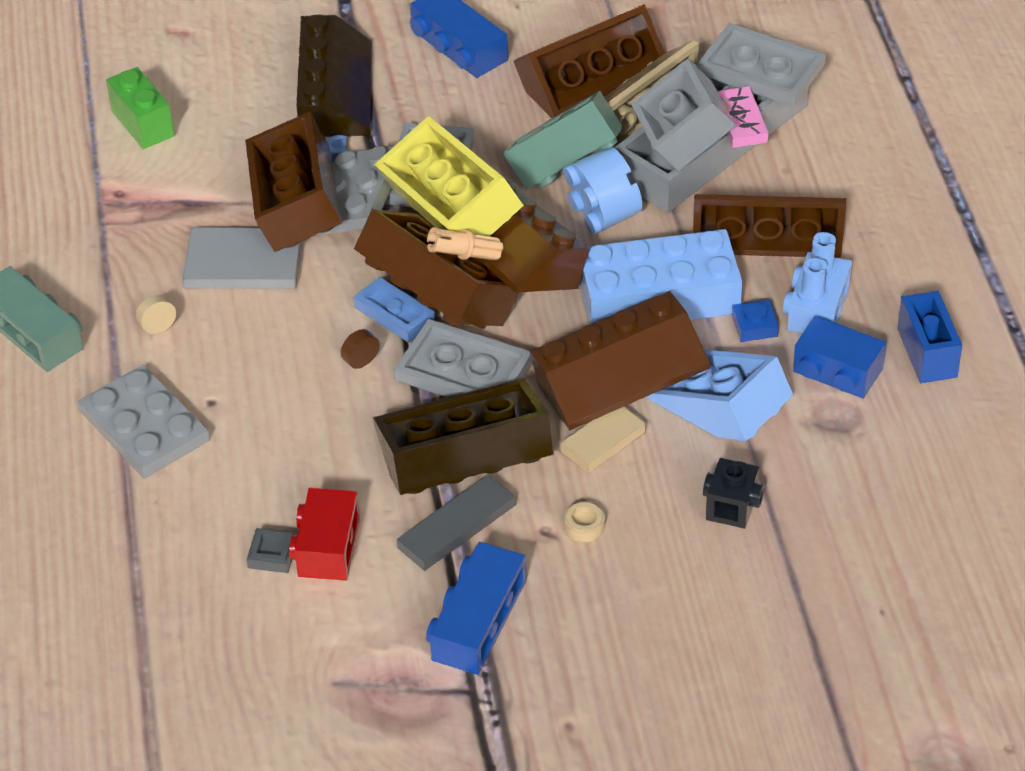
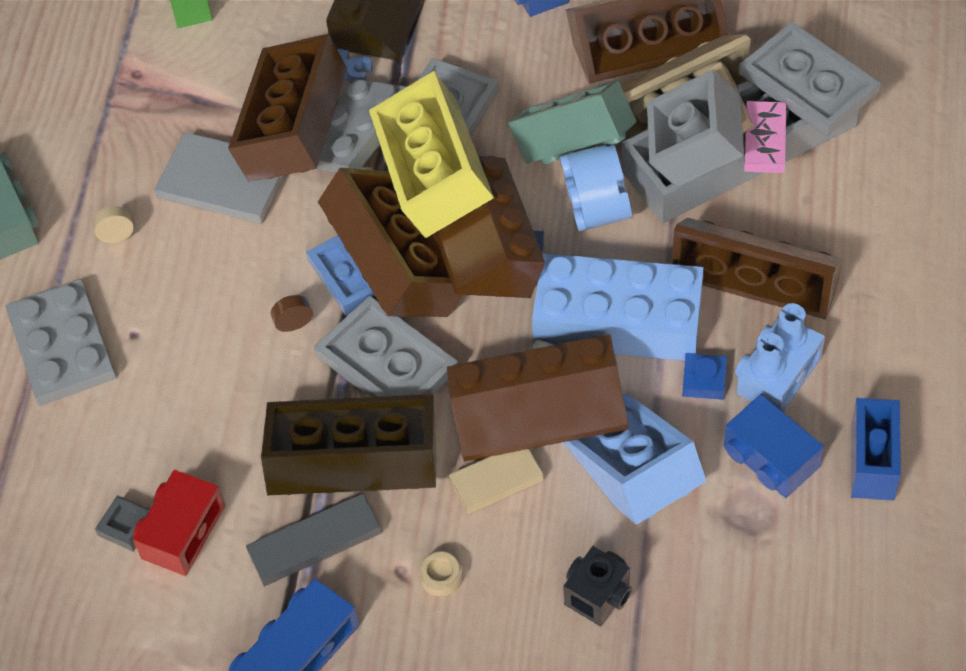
camera: 20 degrees right, 10 degrees up
(464, 244) = (417, 231): light nougat axle -> none

